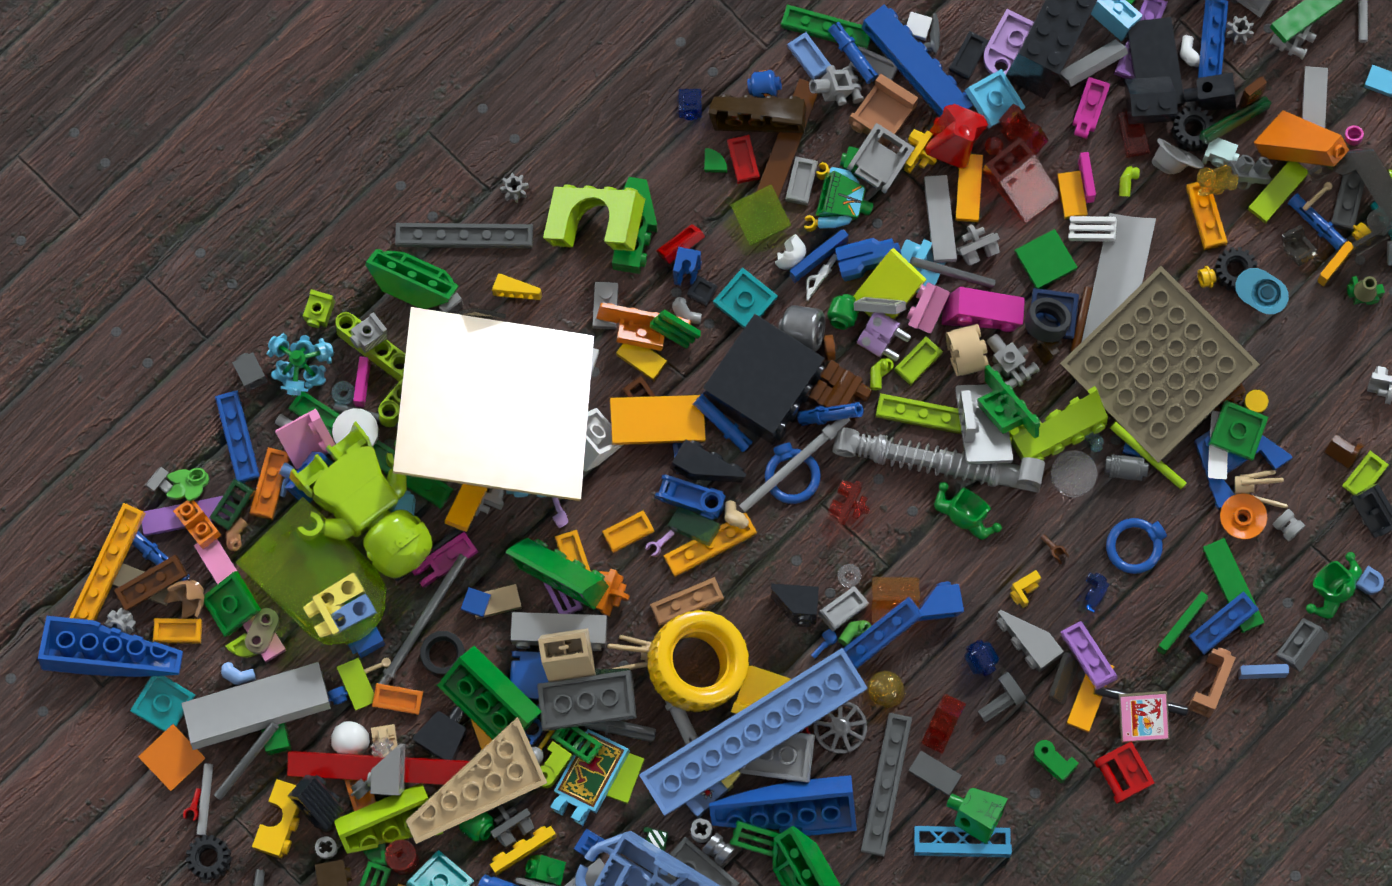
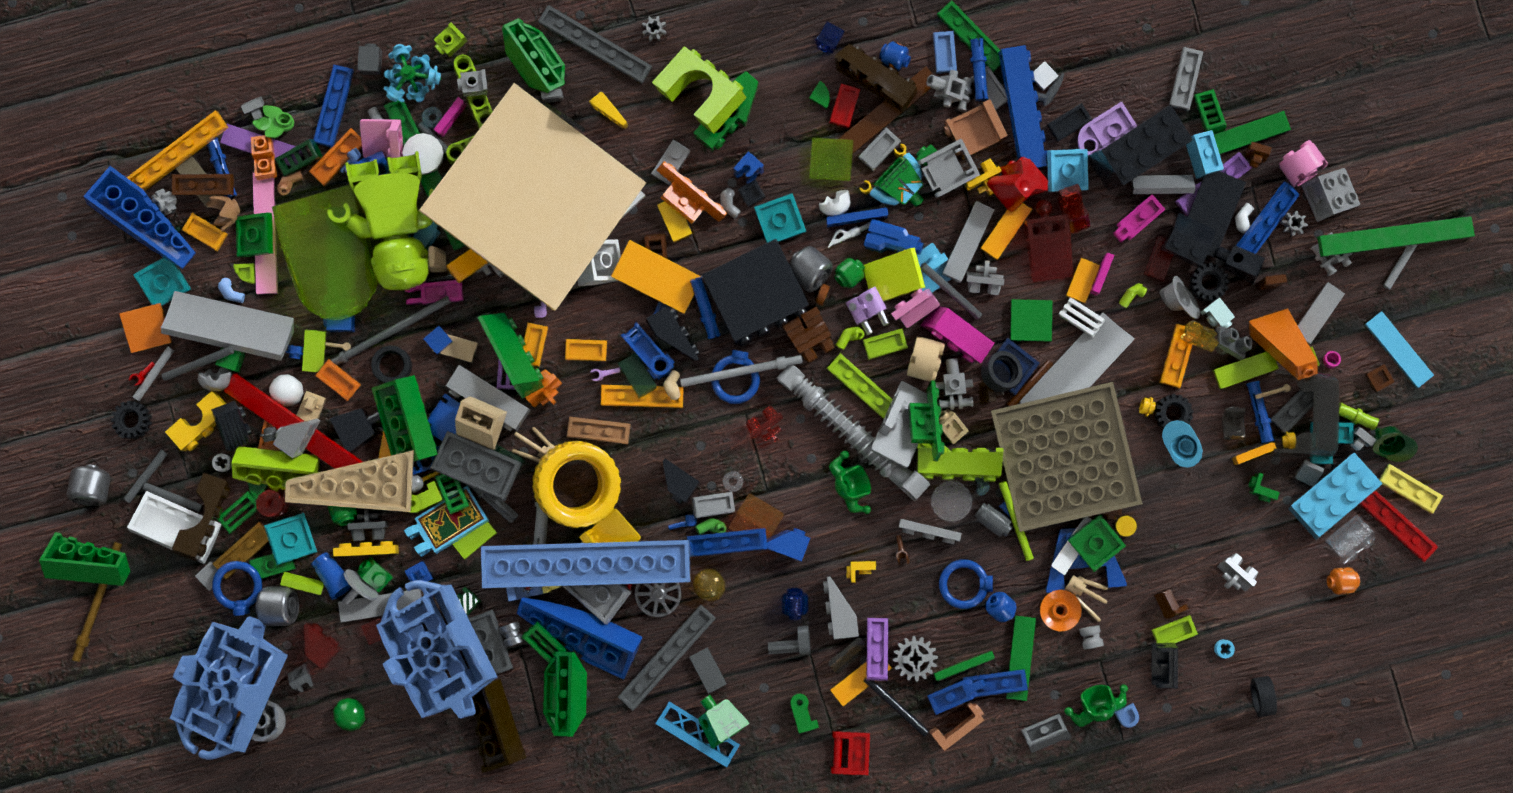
camera: 30 degrees right, 10 degrees up
(262, 630) = (266, 271): dark tan plate -> none
(275, 769) = (215, 381): none -> light grey hair
(333, 608) = (321, 288): light yellow hips -> none
(382, 747) = (302, 413): clear plate -> none
(430, 522) = (437, 259): none -> tan slope
(672, 330) = (711, 213): green tile -> none
(684, 239) = (756, 146): red tile -> none
(698, 837) = (503, 617): light grey bush -> none
(822, 414) = (784, 345): blue pin -> none
(879, 305) = (878, 286): light grey tile -> none
(943, 723) = (736, 636): clear red slope -> none
(1034, 400) = (952, 426): none -> tan bracket
(1070, 513) = (929, 531): none -> light grey plate
(1096, 595) = (910, 606): clear blue bracket -> none
(1136, 651) = (906, 658): none -> light grey gear
(1143, 716) = (890, 720): tile -> none
(1184, 545) = (1001, 607): none -> blue head
(1191, 655) = (955, 695): none -> blue hinge
(1235, 120) = (1245, 295): dark green axle -> none
(1263, 671) = (1002, 738): medium blue tile -> none
(1366, 289) = (1258, 491): olive cone -> none

